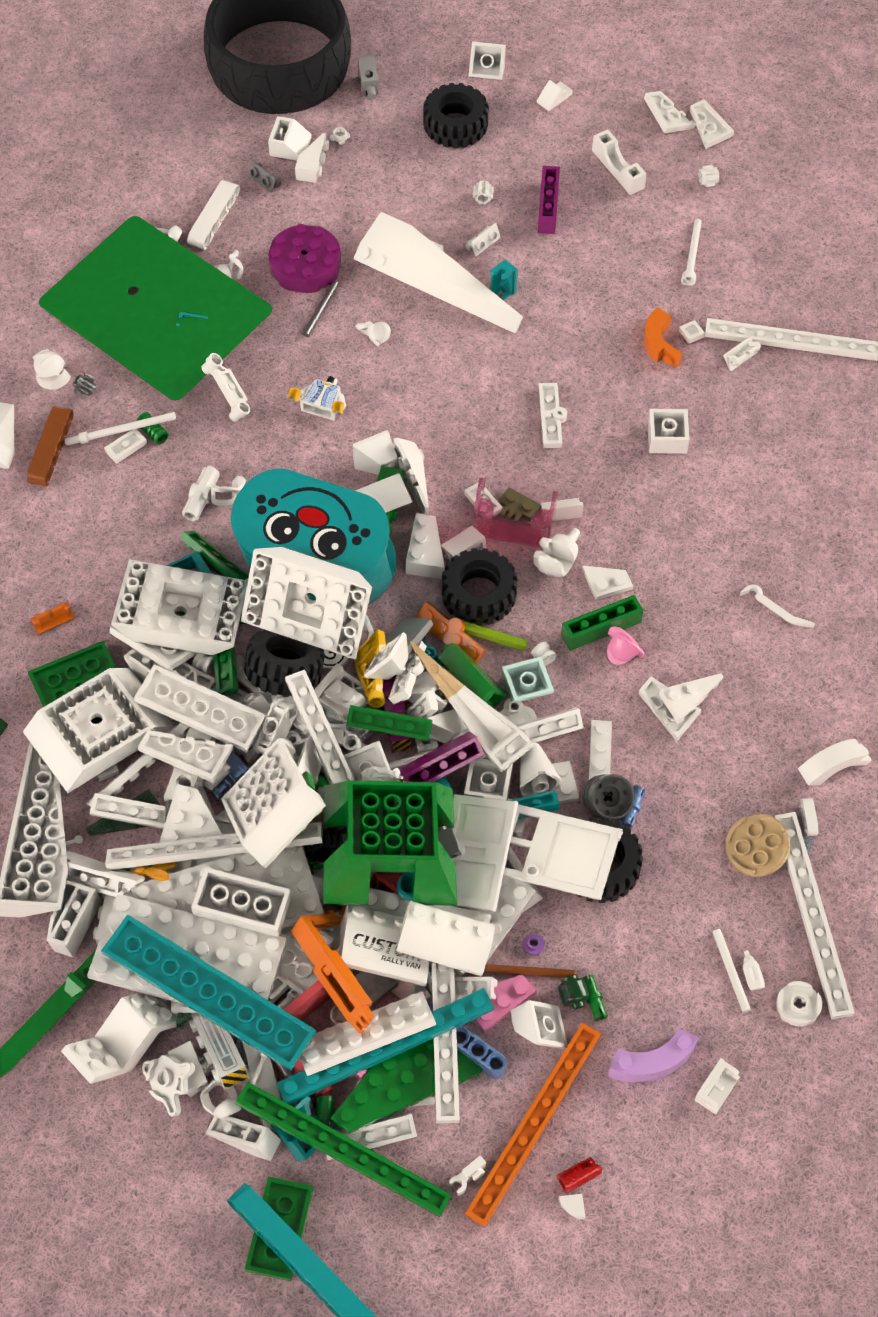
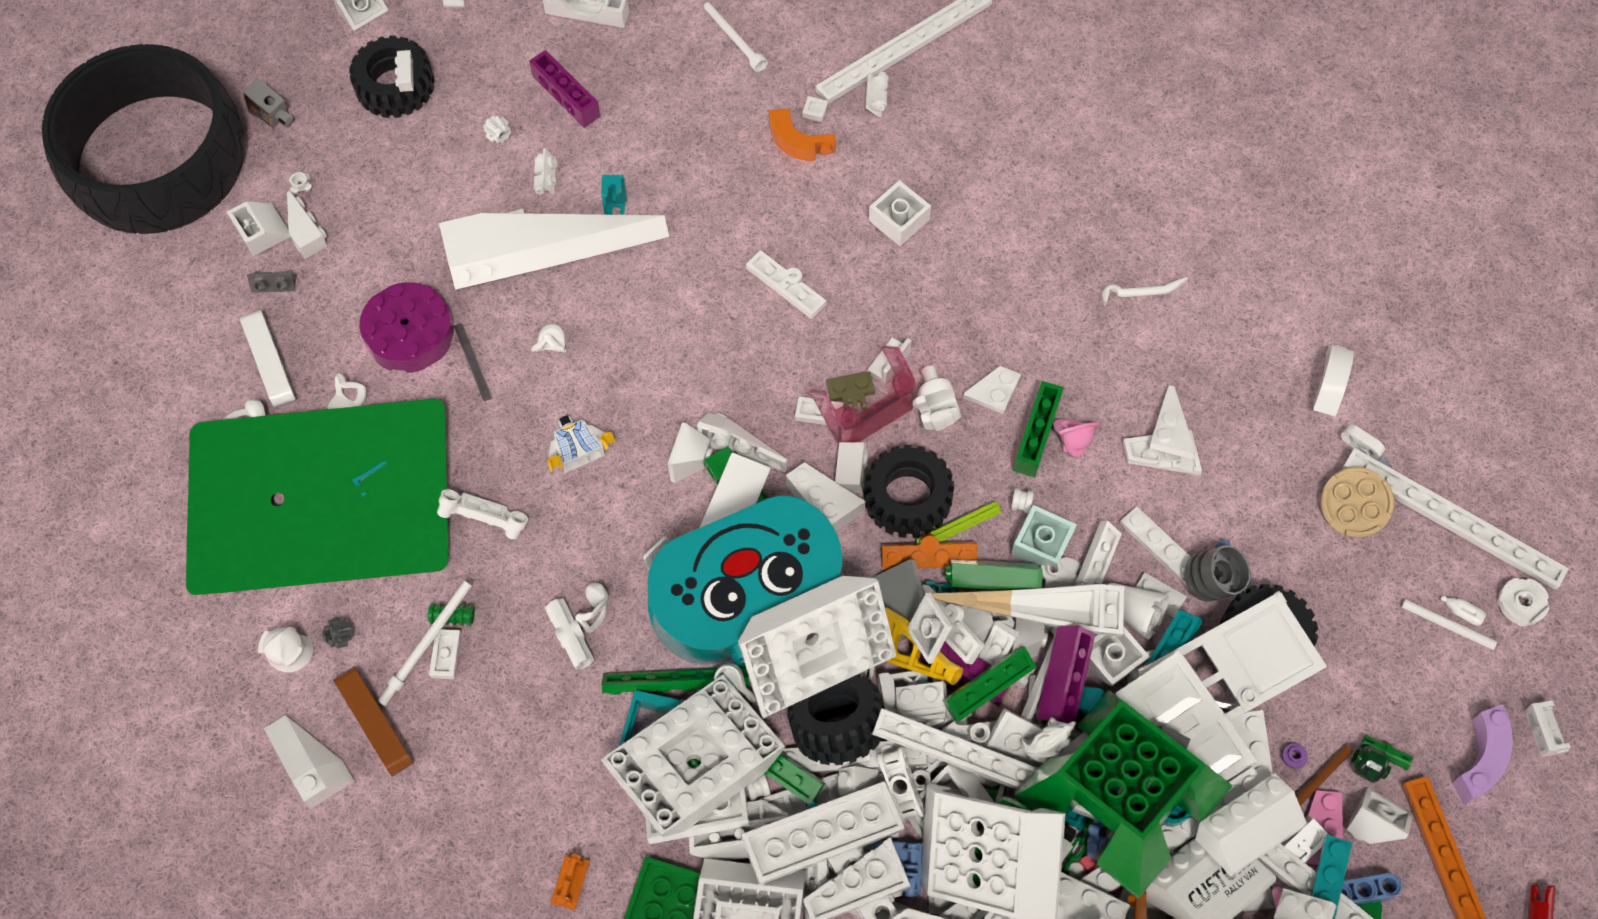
camera: 45 degrees left, 5 degrees up
(460, 113) = (404, 71): none -> white piece

